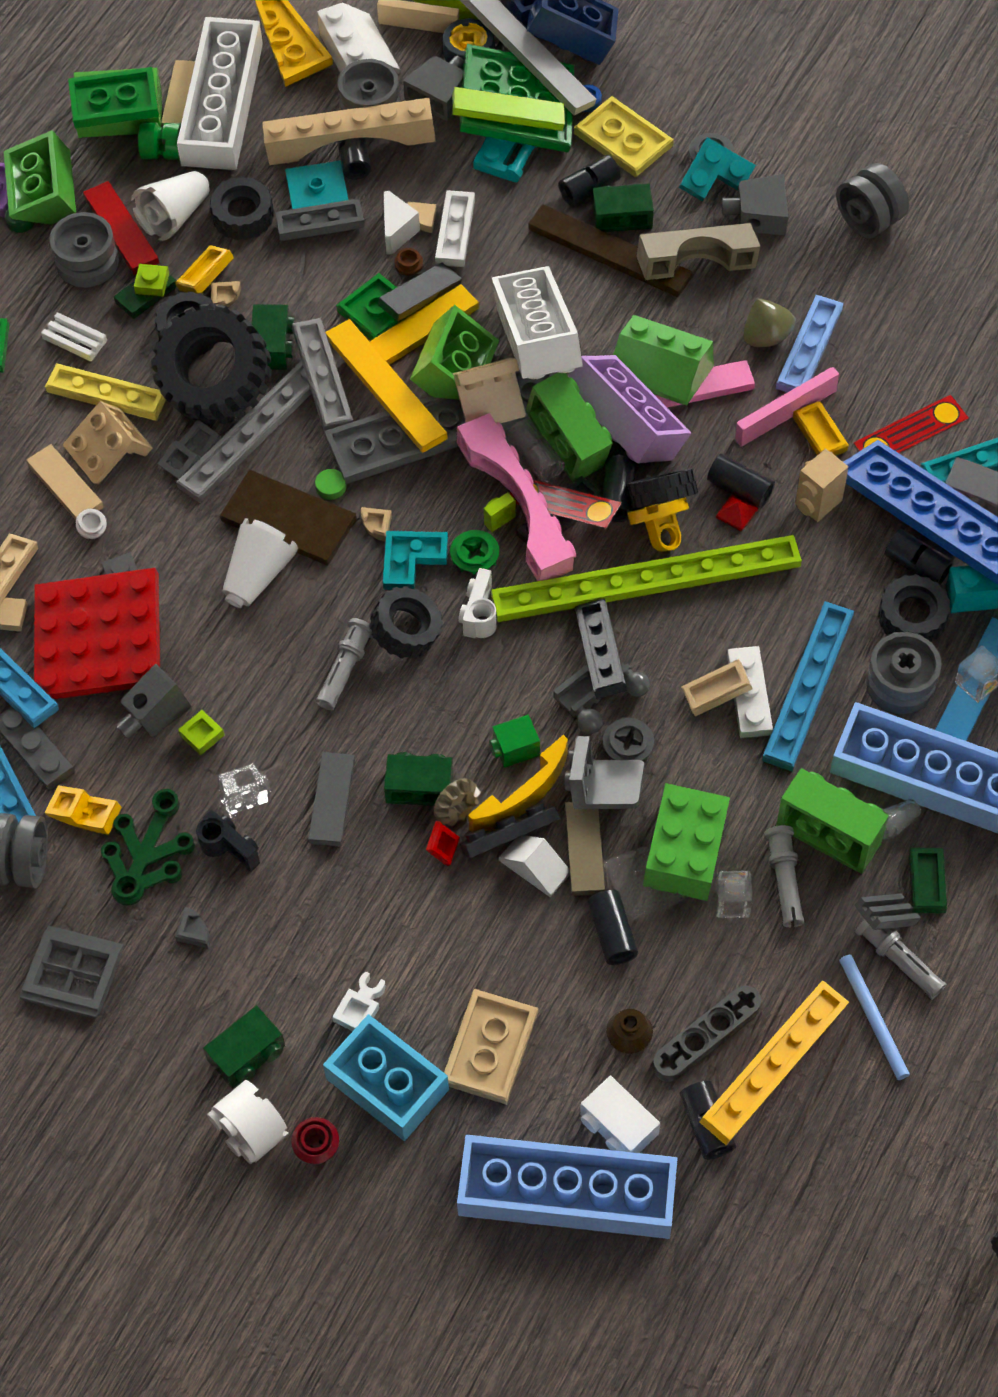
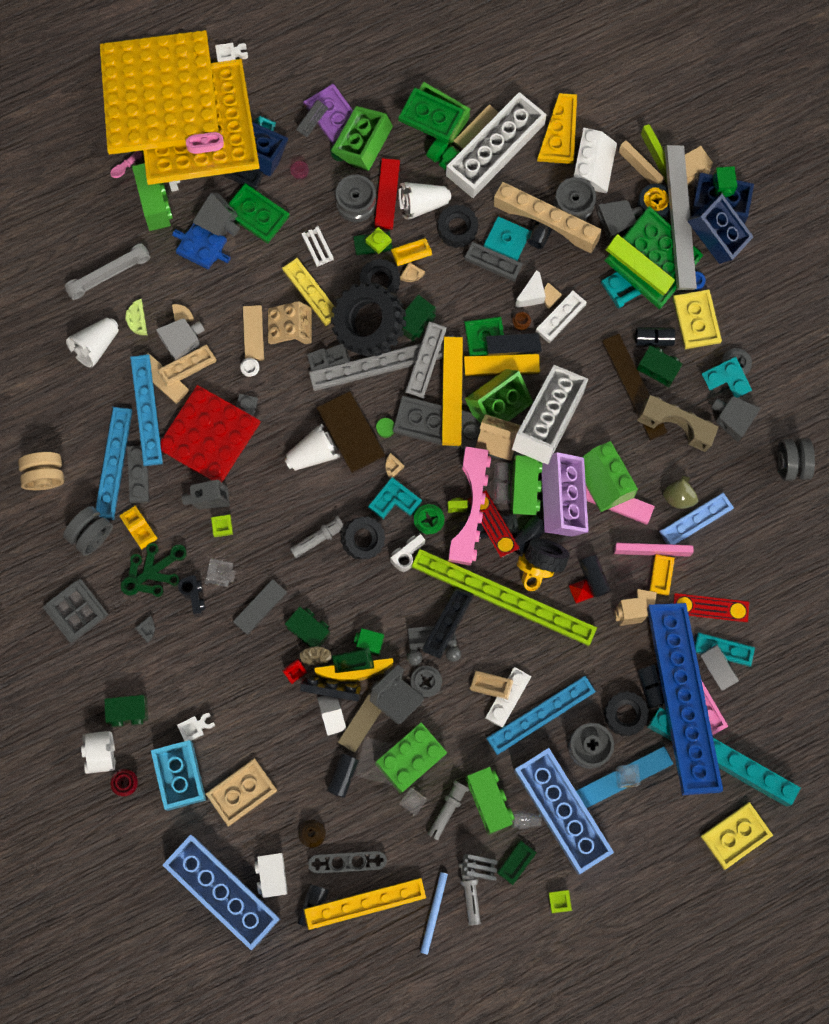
camera: 30 degrees right, 15 degrees up
(512, 773) = (353, 660): none -> dark green tile

